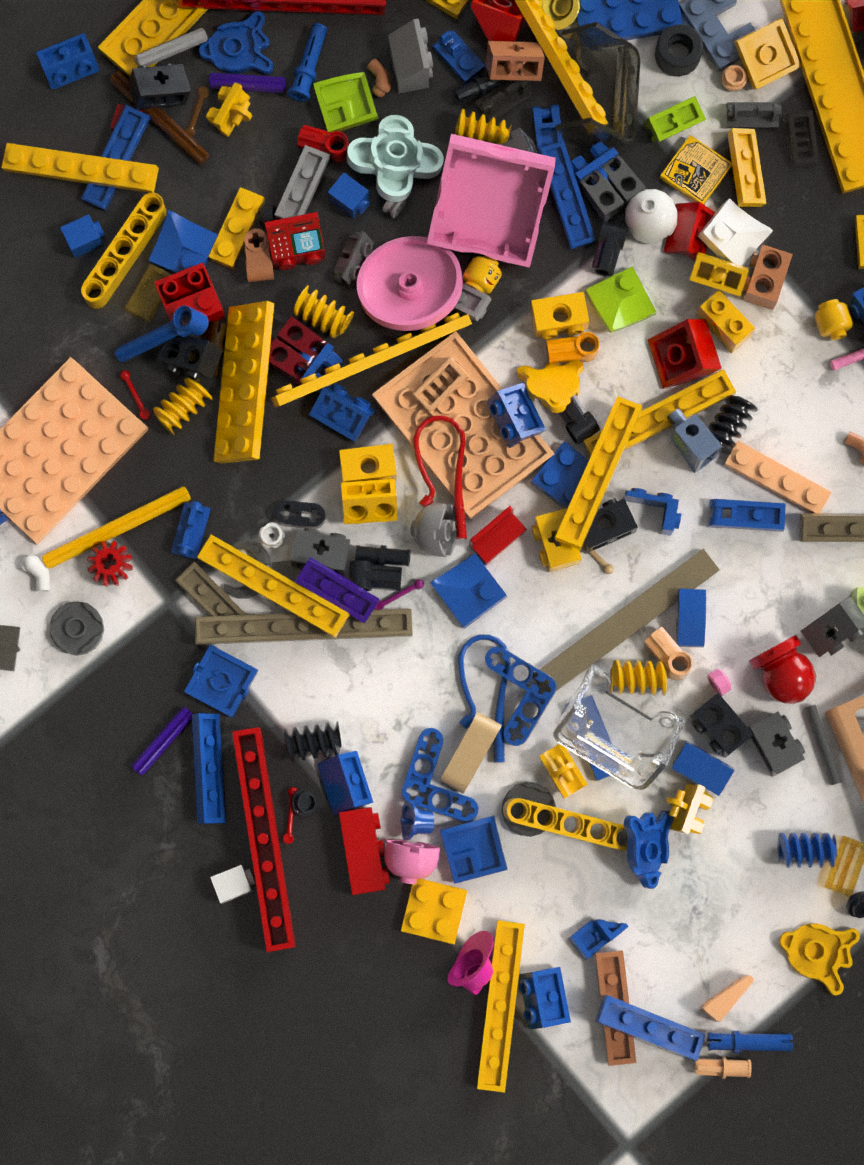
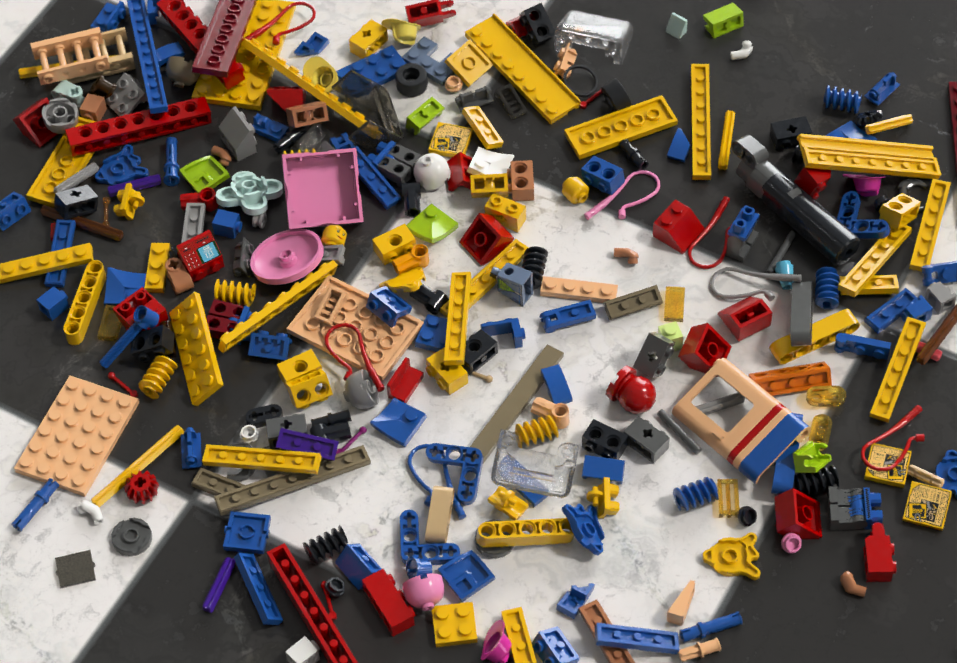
camera: 15 degrees left, 25 degrees down
(719, 682) = (590, 414): bright pink tile -> none

